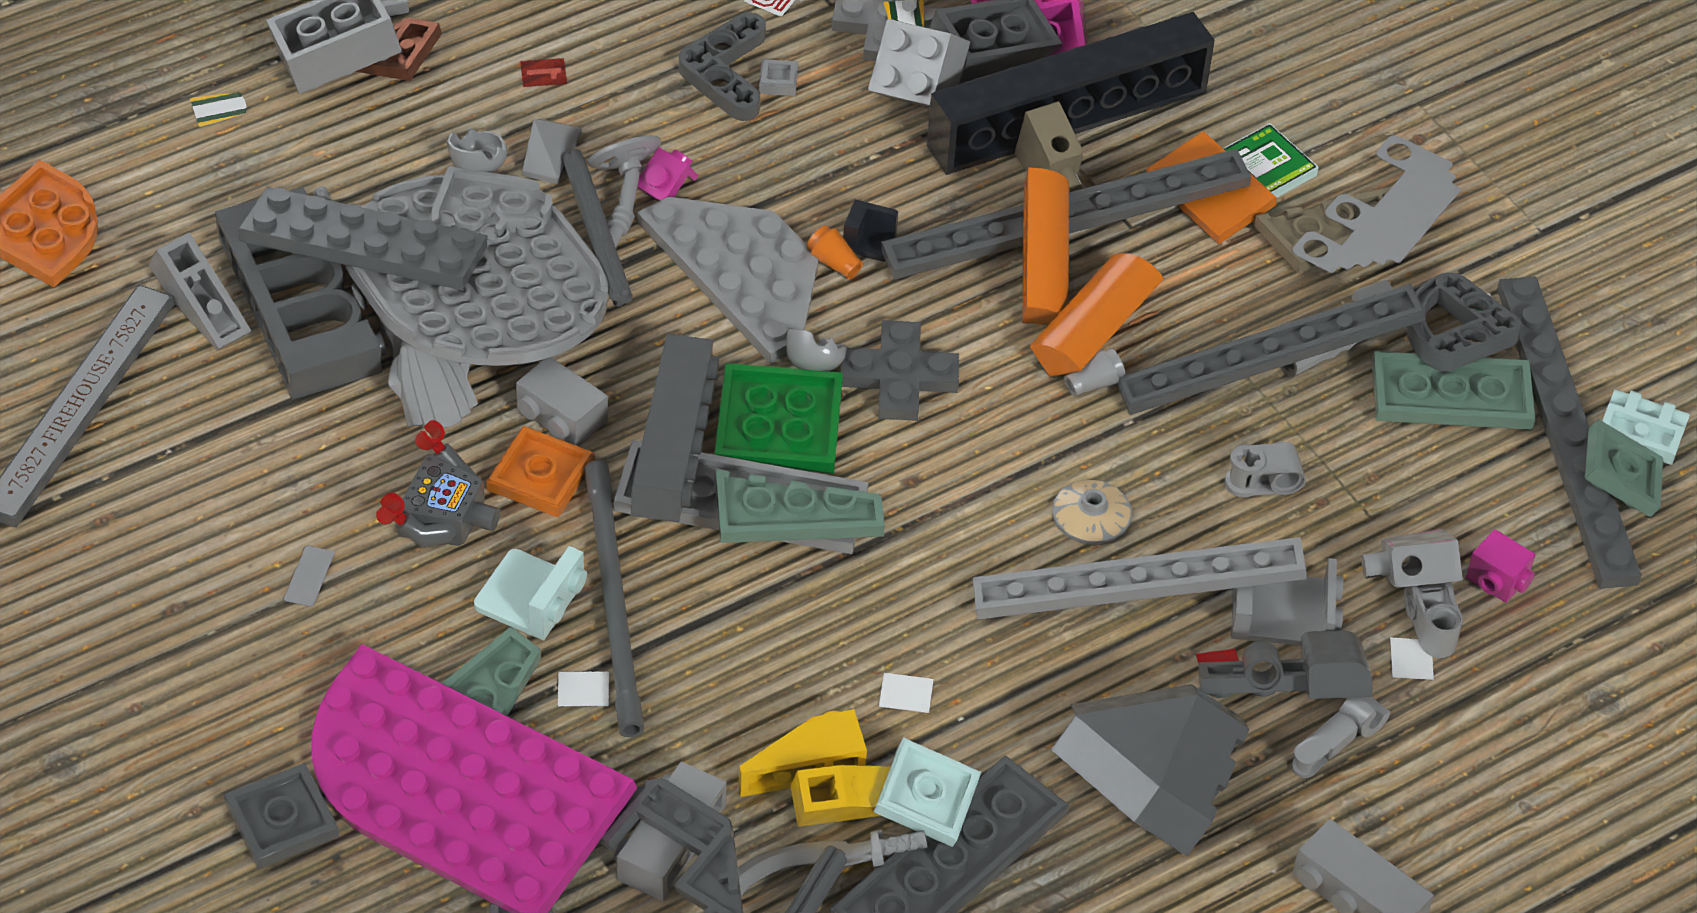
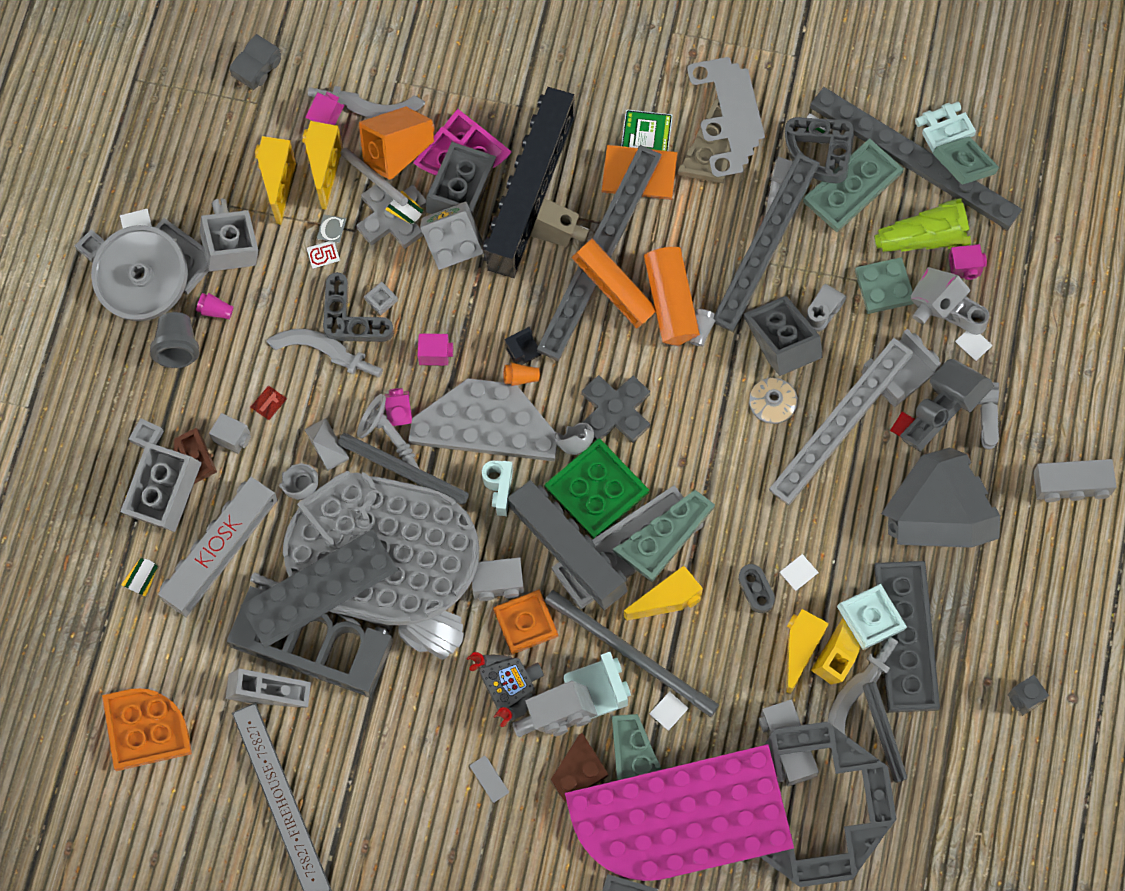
camera: 40 degrees left, 20 degrees up
(322, 138) = (217, 546): none -> light grey brick
(417, 644) = (578, 769): none -> copper wing
(459, 557) = (557, 710): none -> light grey brick
(466, 57) = (230, 433): none -> light grey brick
(669, 75) = (328, 346): none -> light grey sword
(686, 315) = (501, 484): none -> light aqua plate
(724, 576) = (669, 596): none -> yellow slope
(769, 153) = (434, 349): none -> dark pink brick
(832, 661) = (758, 589): none -> dark grey plate
(1180, 458) = (784, 335): none -> dark grey slope
(1368, 511) = (884, 285): none -> sand green plate
(1490, 494) = (930, 229): none -> lime cone

